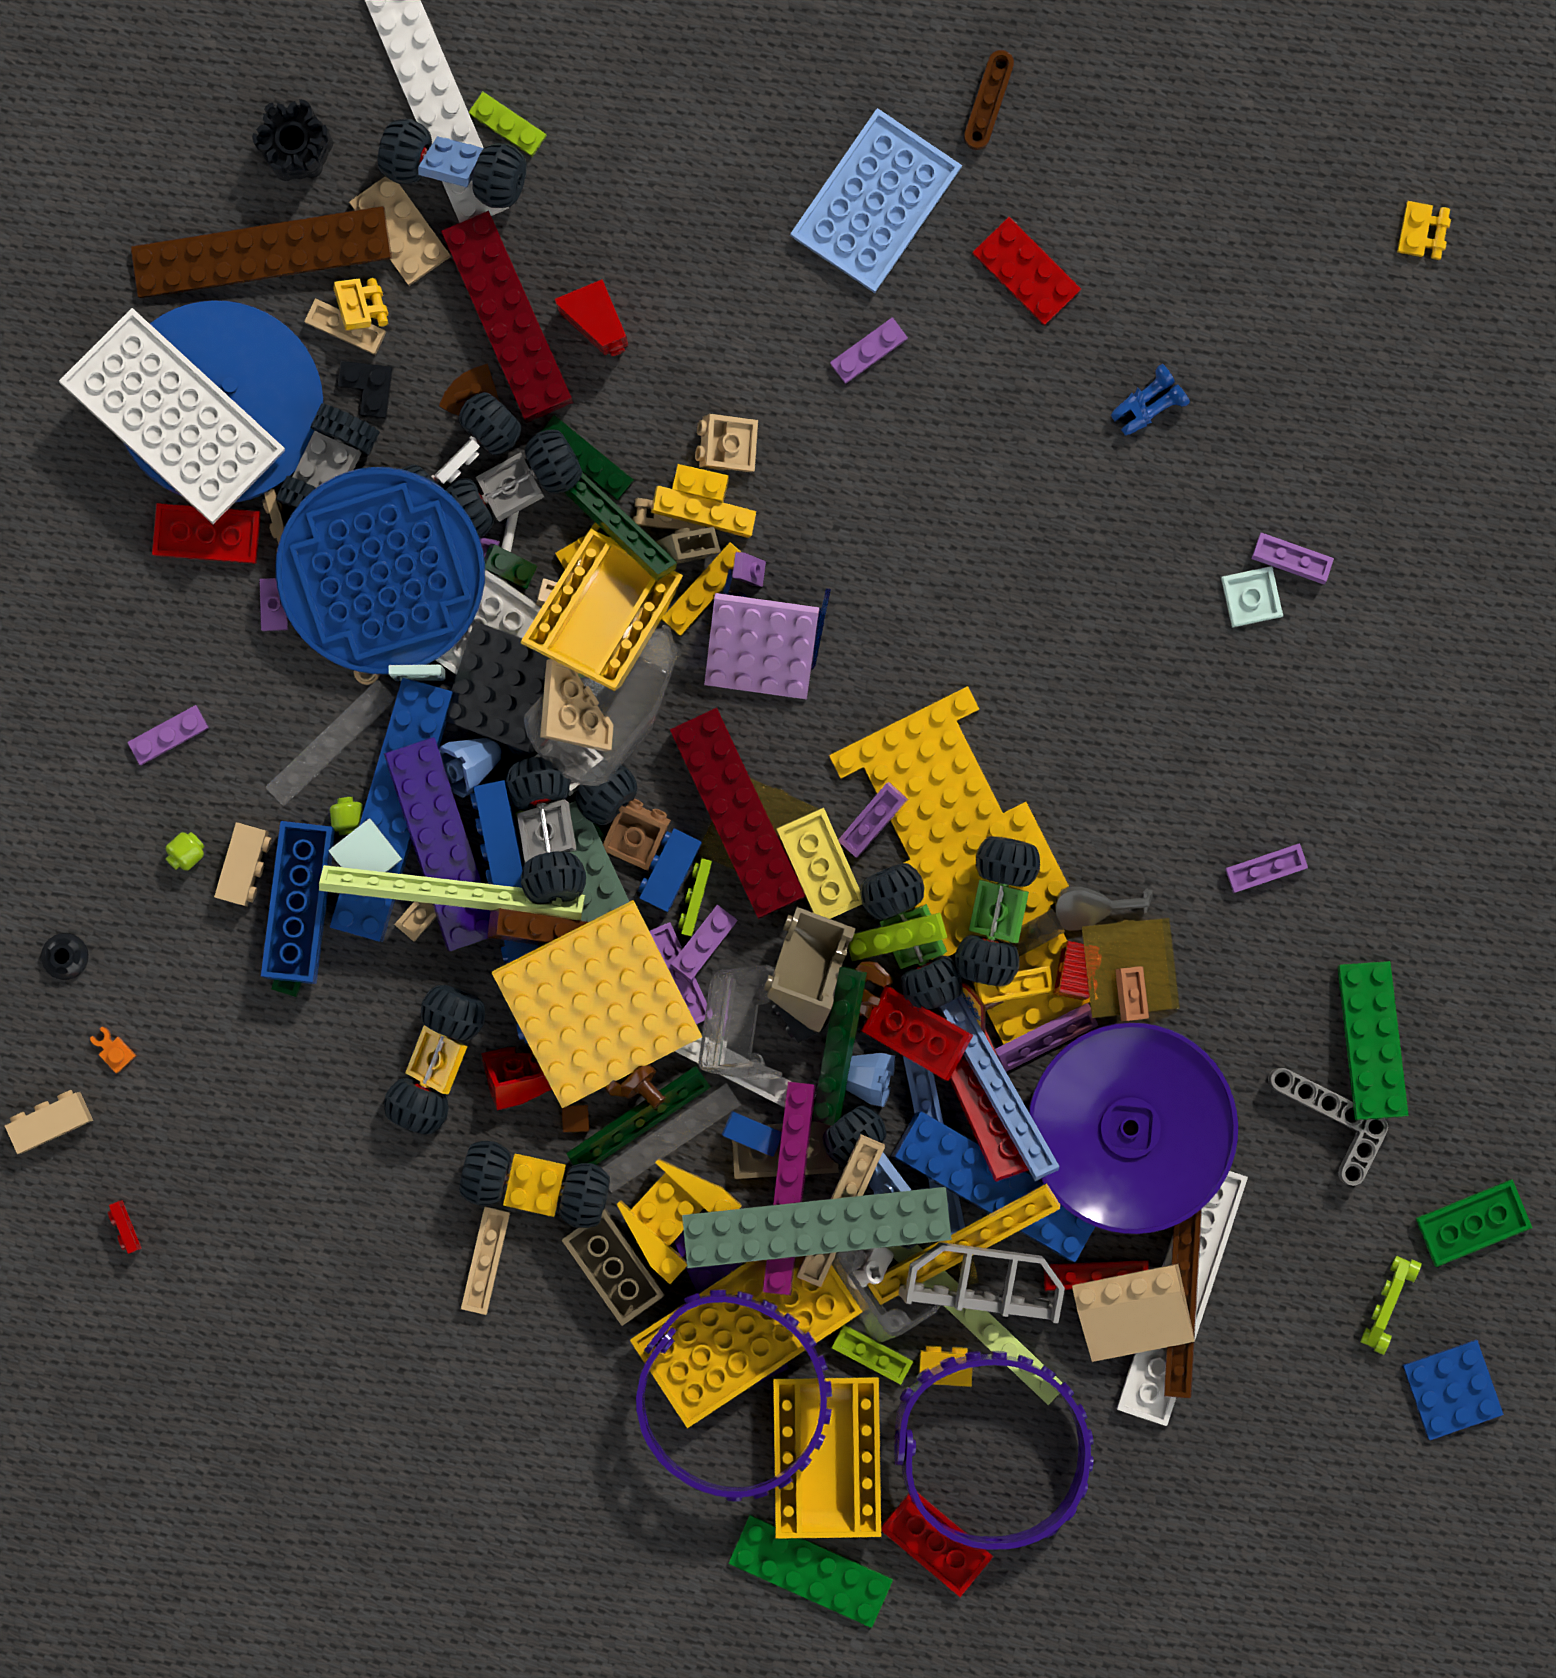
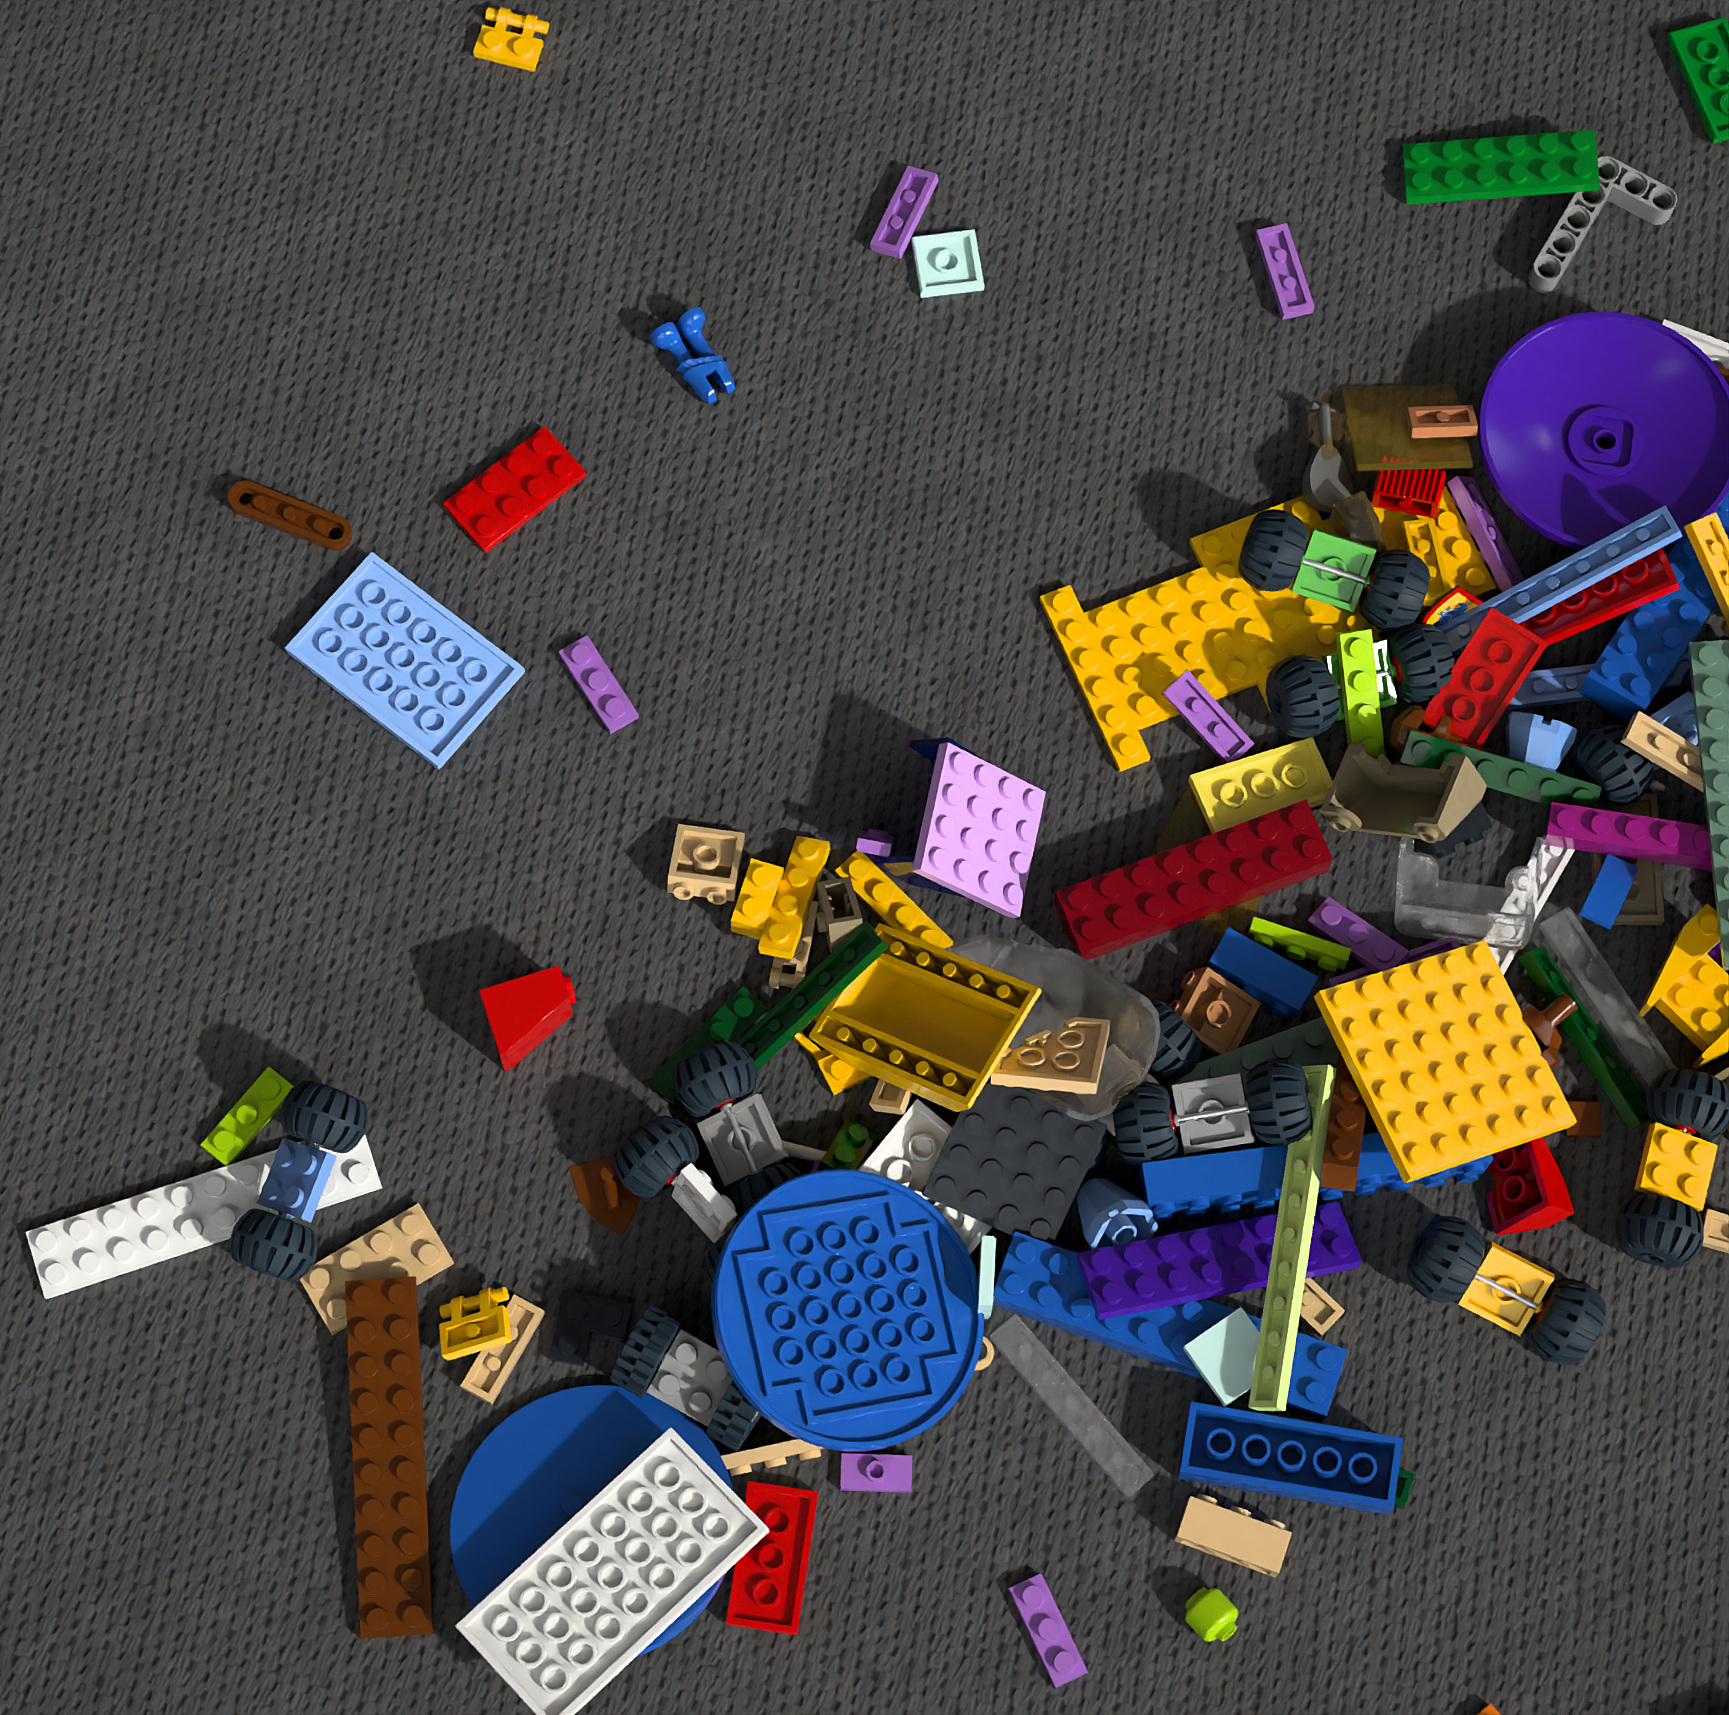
camera: 90 degrees left, 15 degrees down
(279, 126) = (219, 1378): black piece -> none
(346, 815) = (1172, 1390): lime head -> none
(507, 316) = (511, 1131): dark red brick -> none

